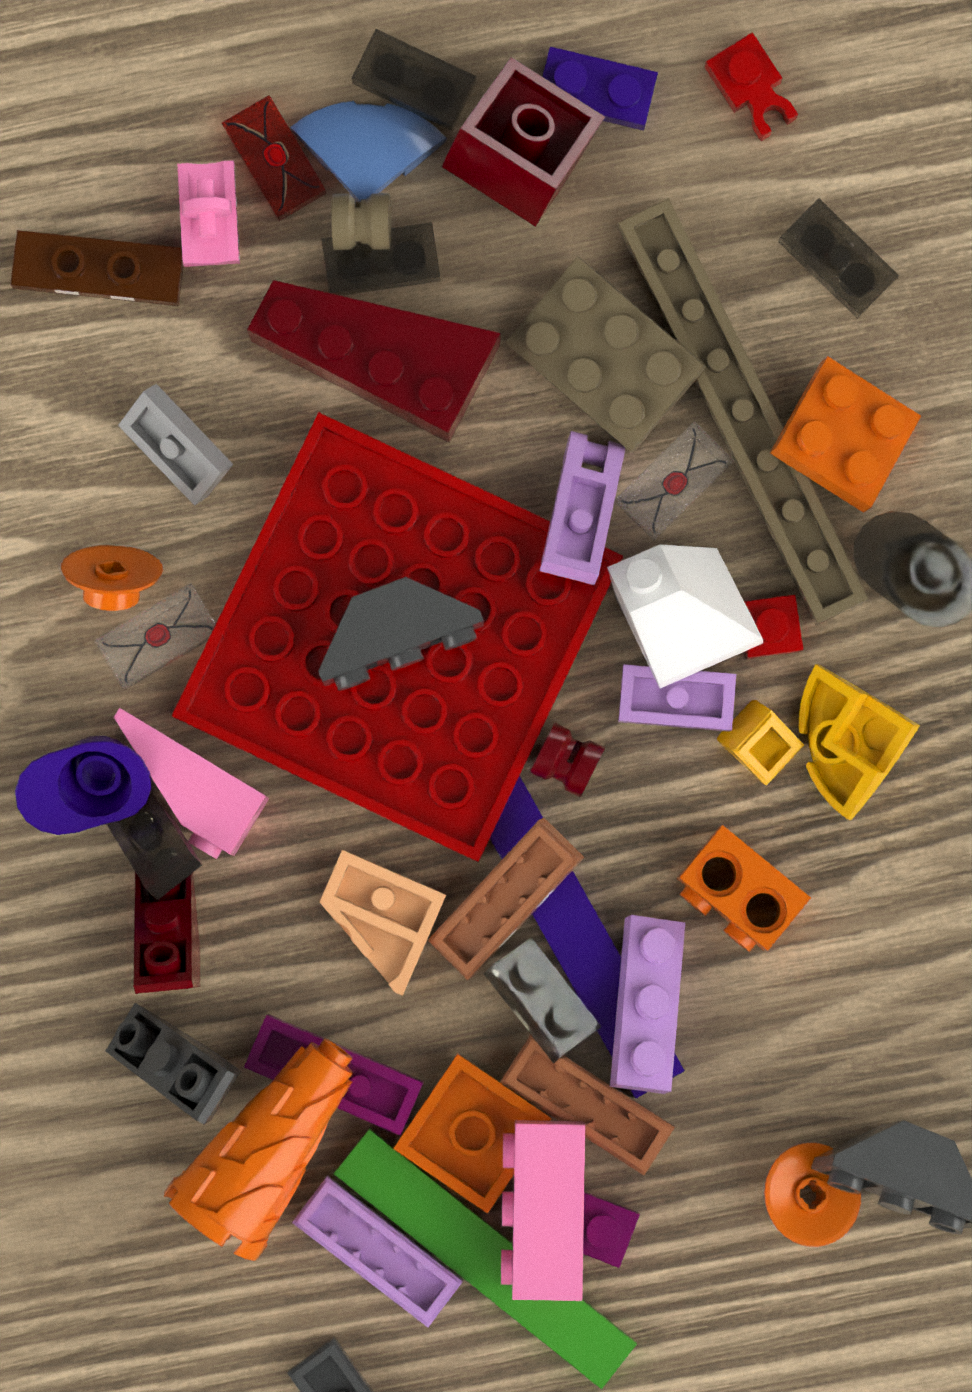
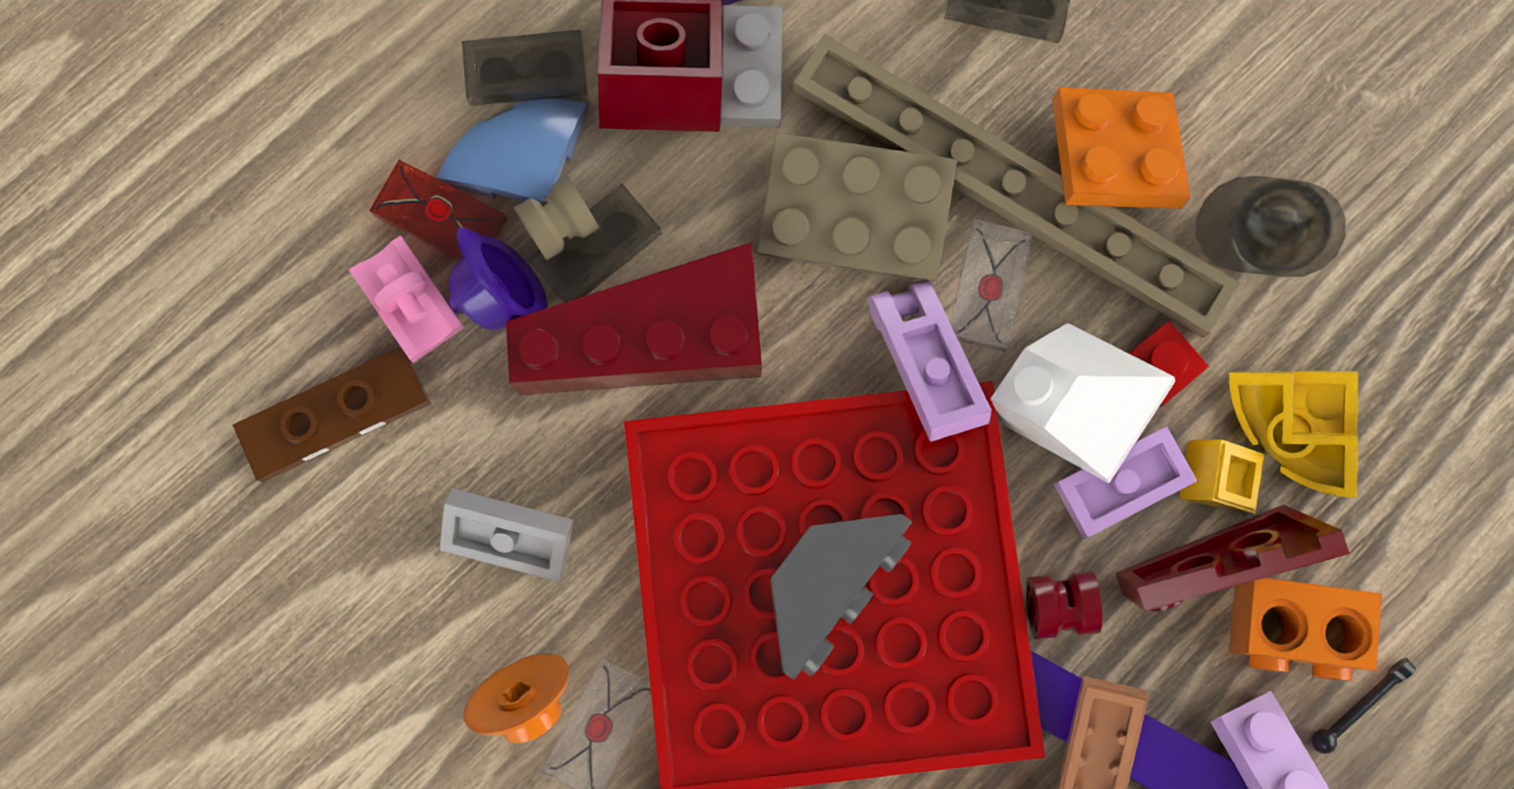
camera: 35 degrees left, 5 degrees down
(284, 242) = (492, 282): none -> dark purple piece
(597, 187) = (751, 66): none -> light grey plate
(704, 987) = (1326, 739): none -> black hinge
(715, 801) = (1232, 556): none -> dark red wing

